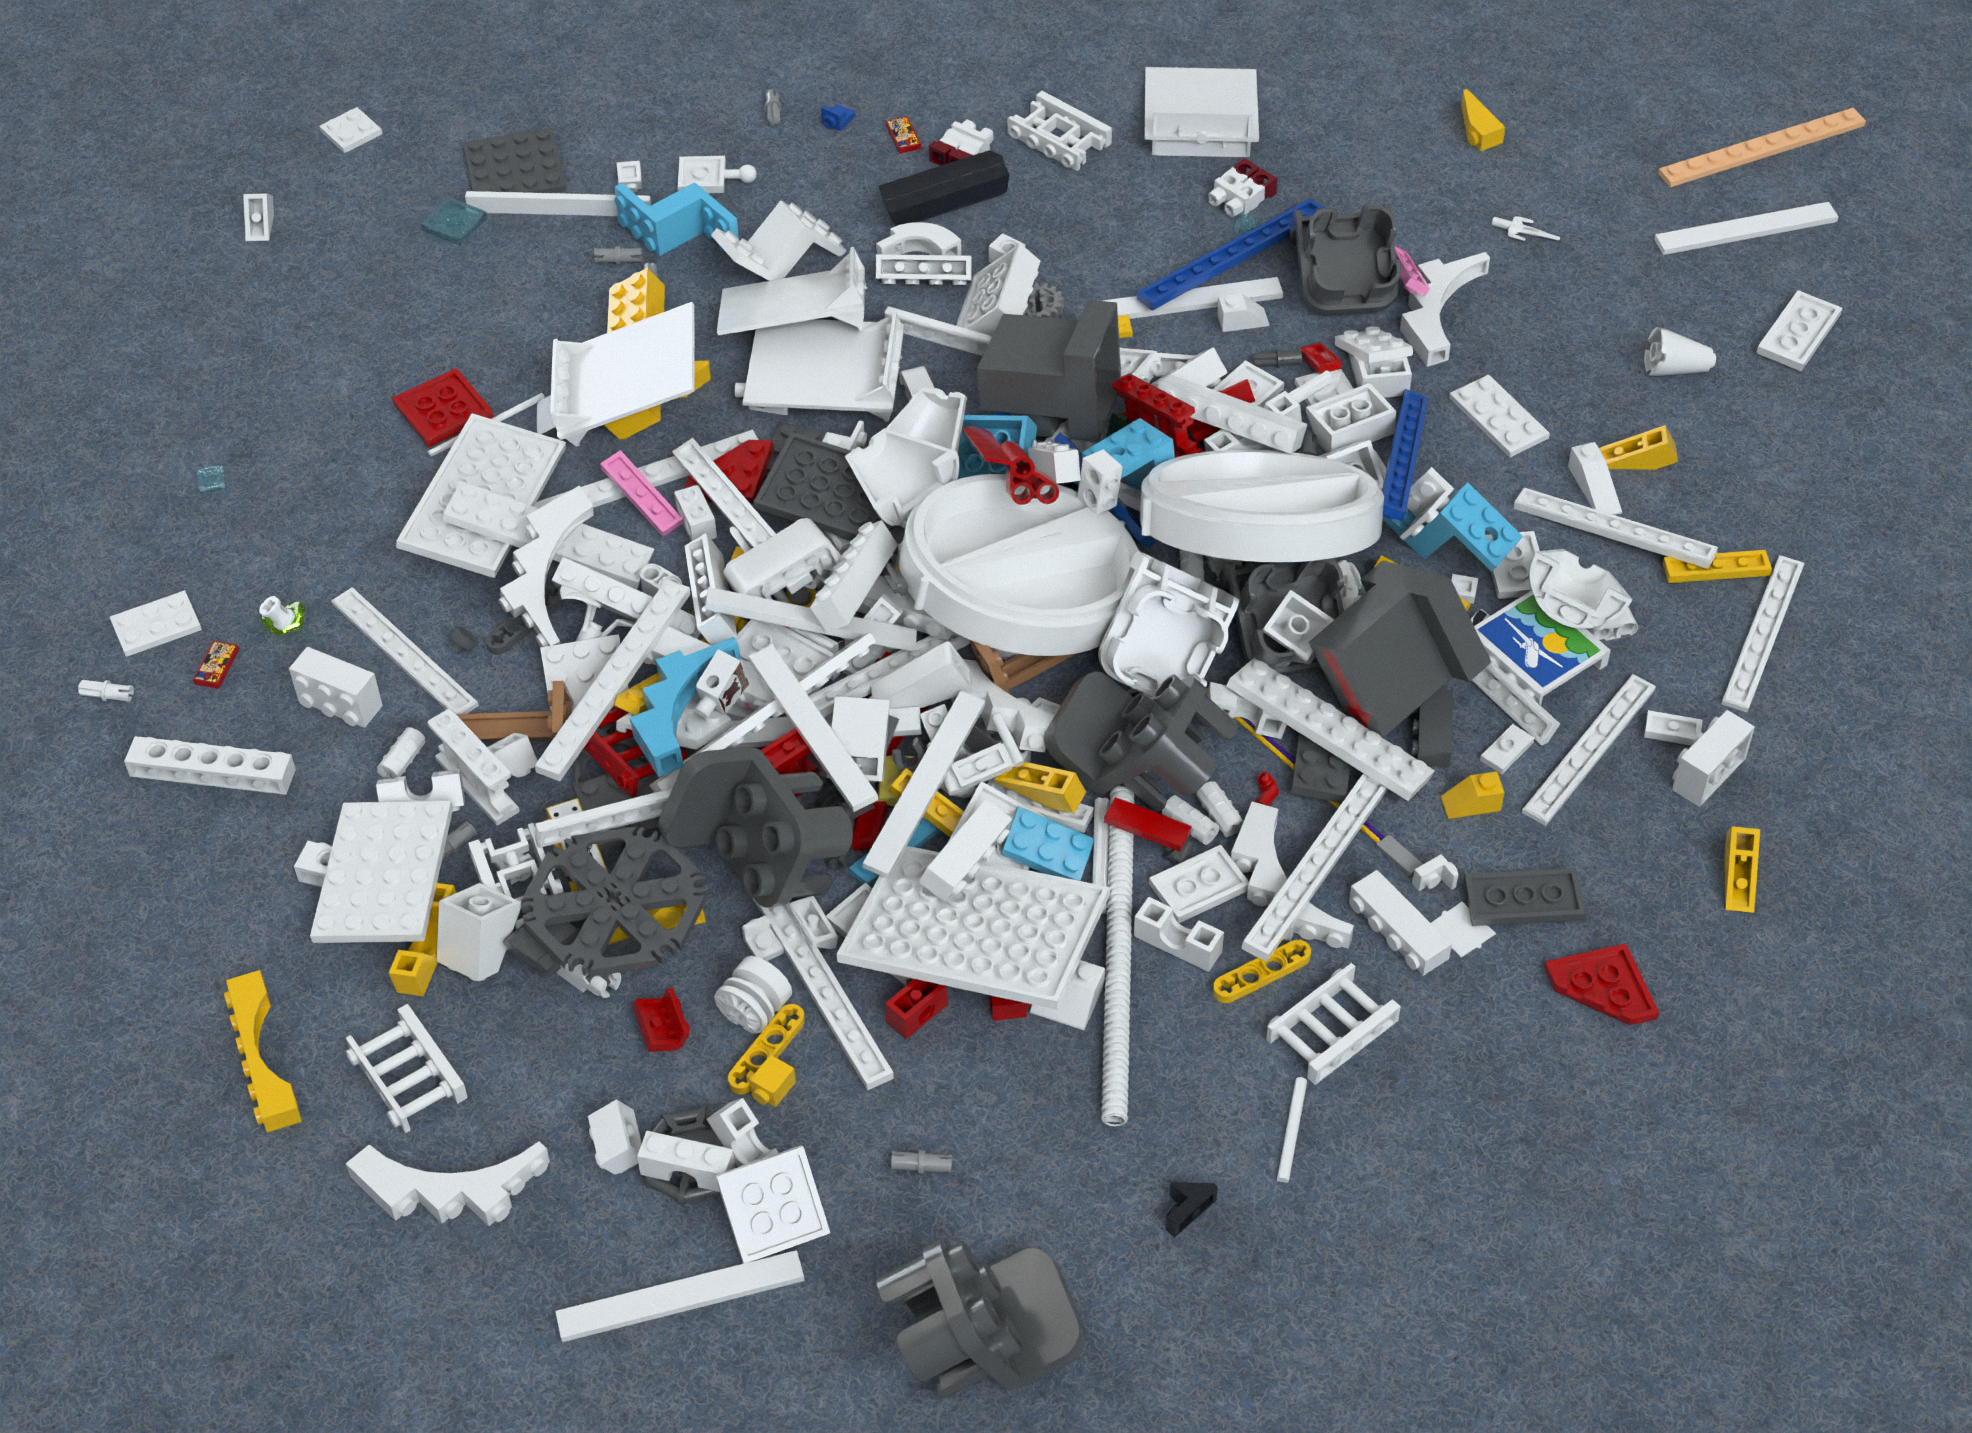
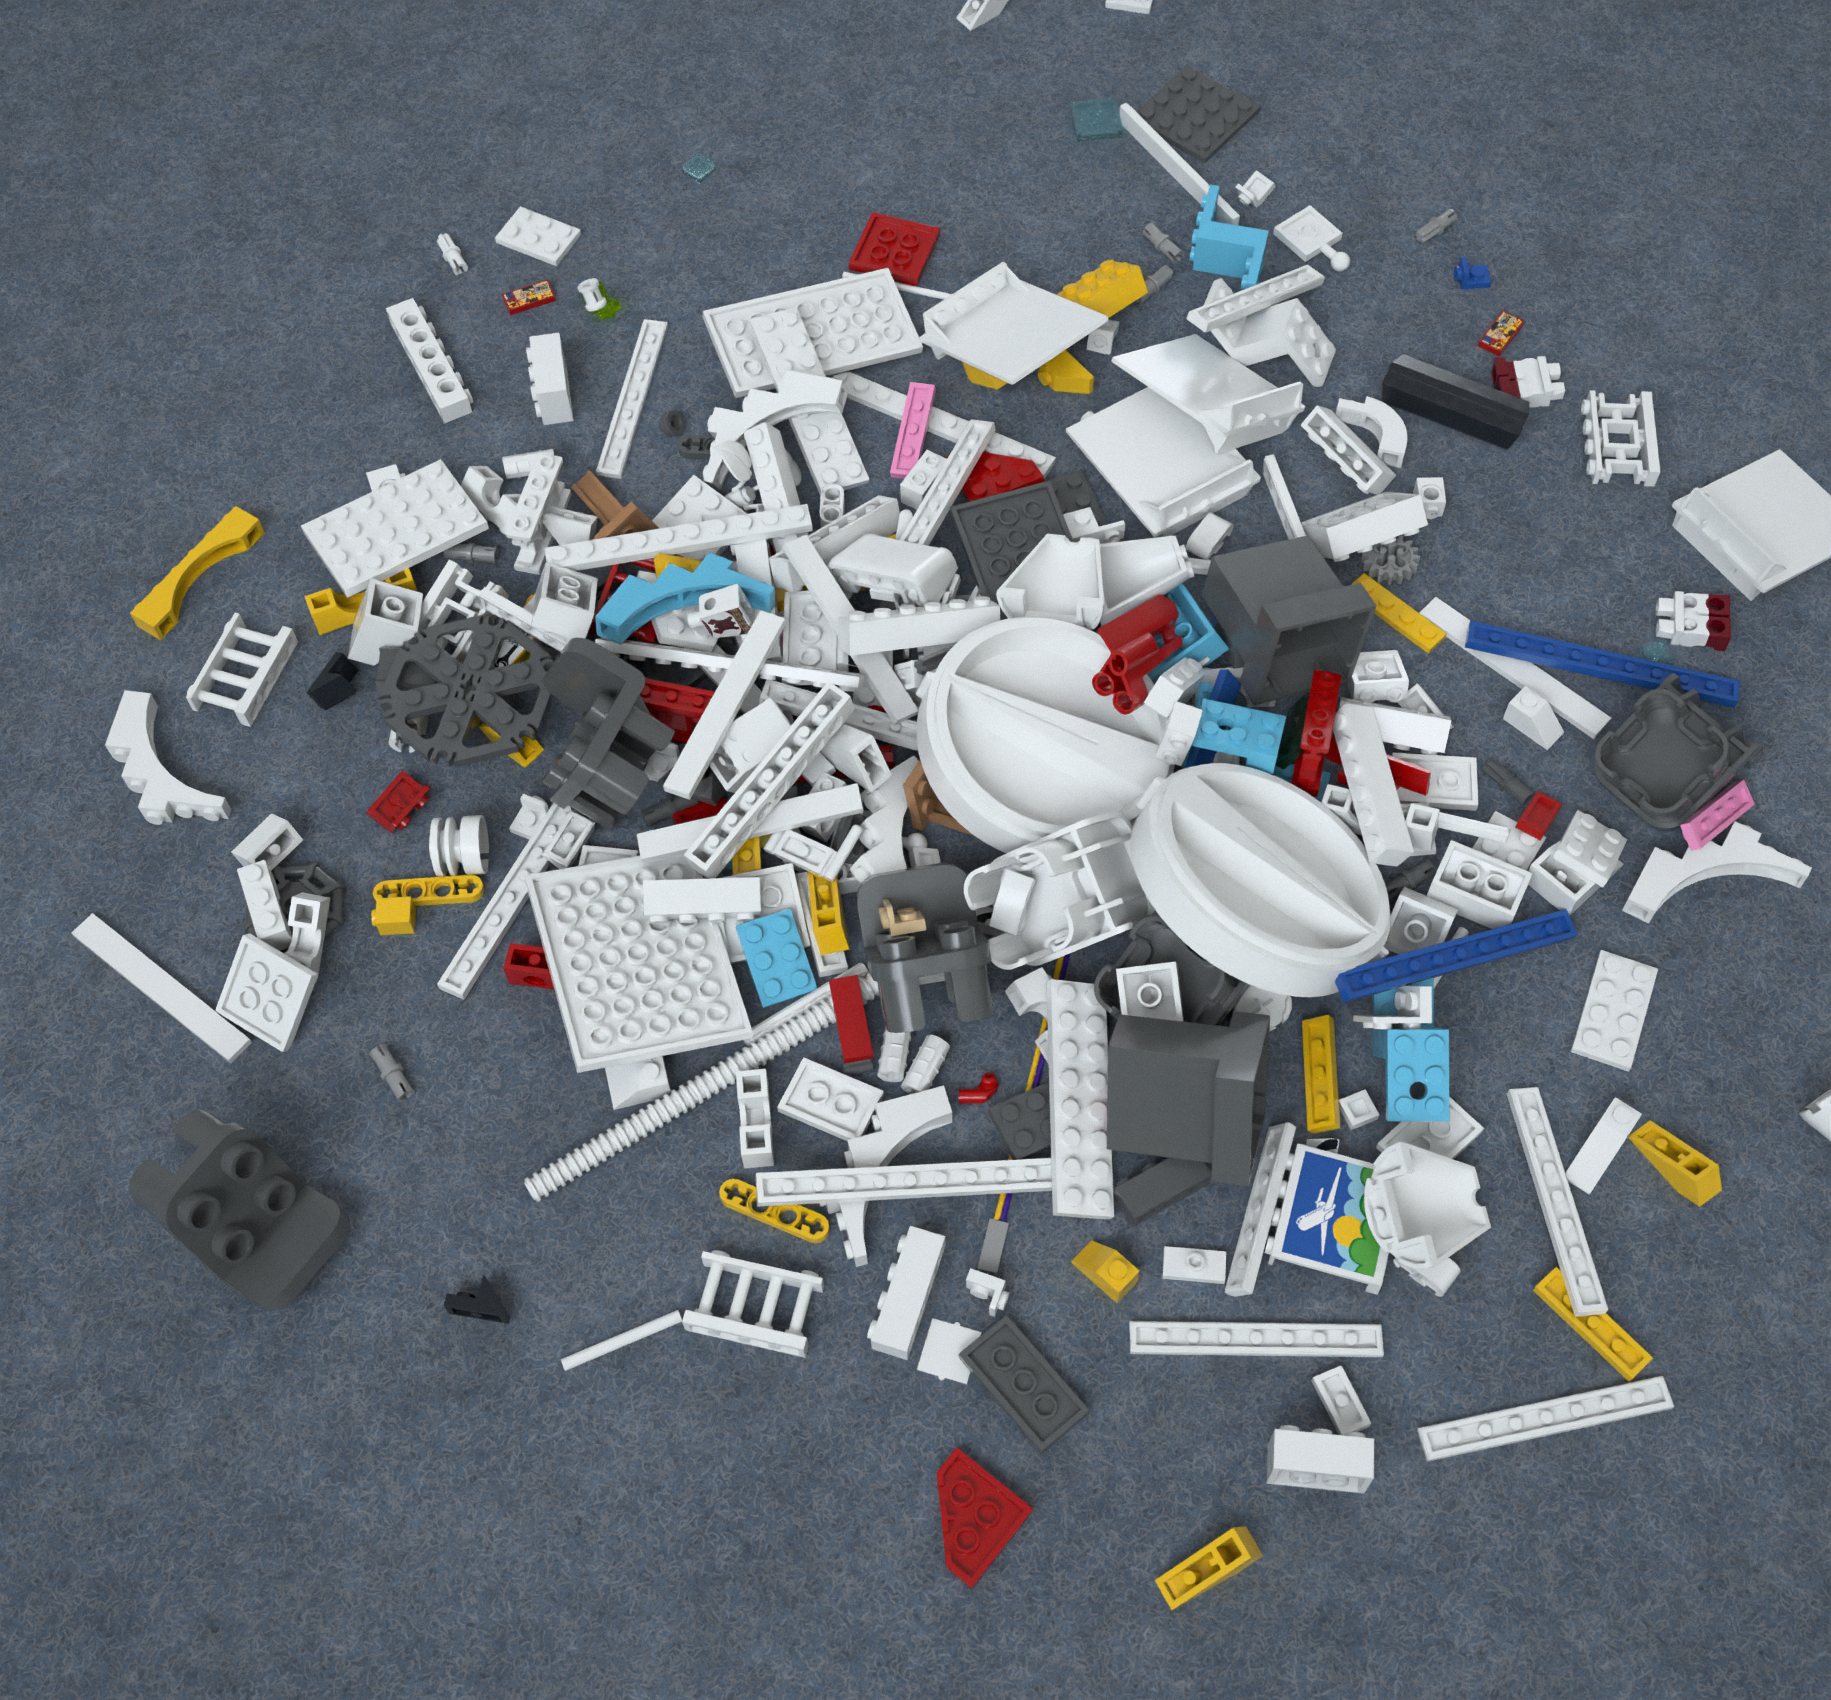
camera: 55 degrees right, 10 degrees up
(492, 1006) = (333, 682): none -> black slope
(606, 779) = (564, 602): none -> white brick
(749, 225) = (1255, 298): none -> white tile
(916, 737) = (770, 781): none -> white brick
(1106, 730) = (904, 922): none -> tan bracket
(1146, 661) = (1011, 902): none -> white slope

